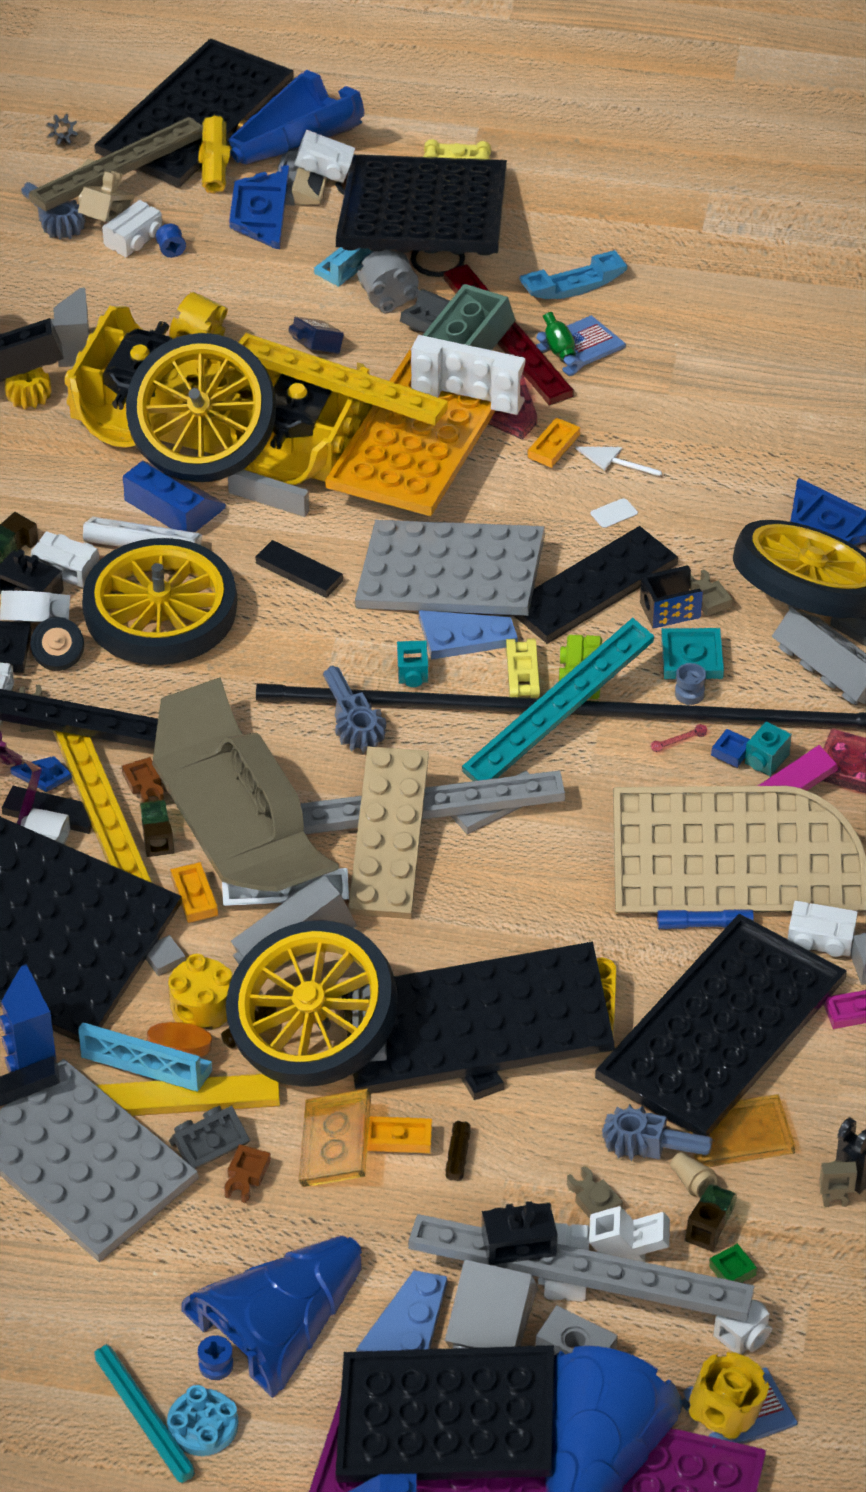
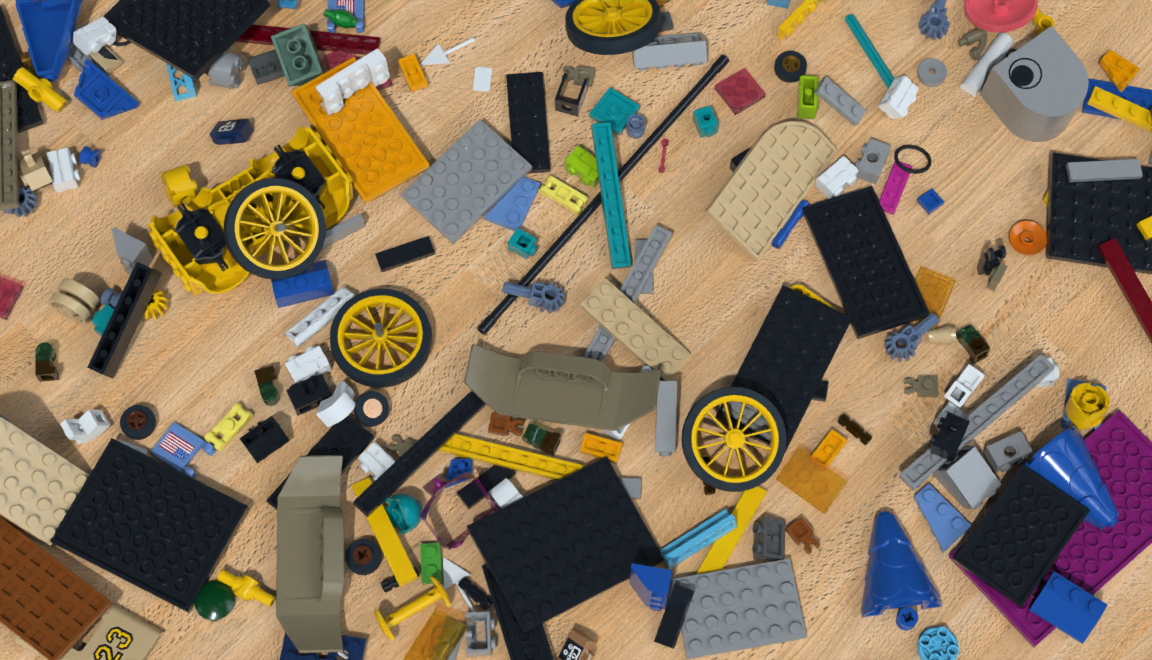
camera: 55 degrees left, 20 degrees up
(181, 1037) = (699, 515): orange tile -> none
(199, 991) = (676, 486): yellow brick -> none
(346, 380) = (311, 146): yellow plate -> none
(730, 748) = (691, 137): blue plate -> none
(733, 1265) = (1006, 354): green plate -> none
(804, 771) = (736, 126): dark pink tile -> none

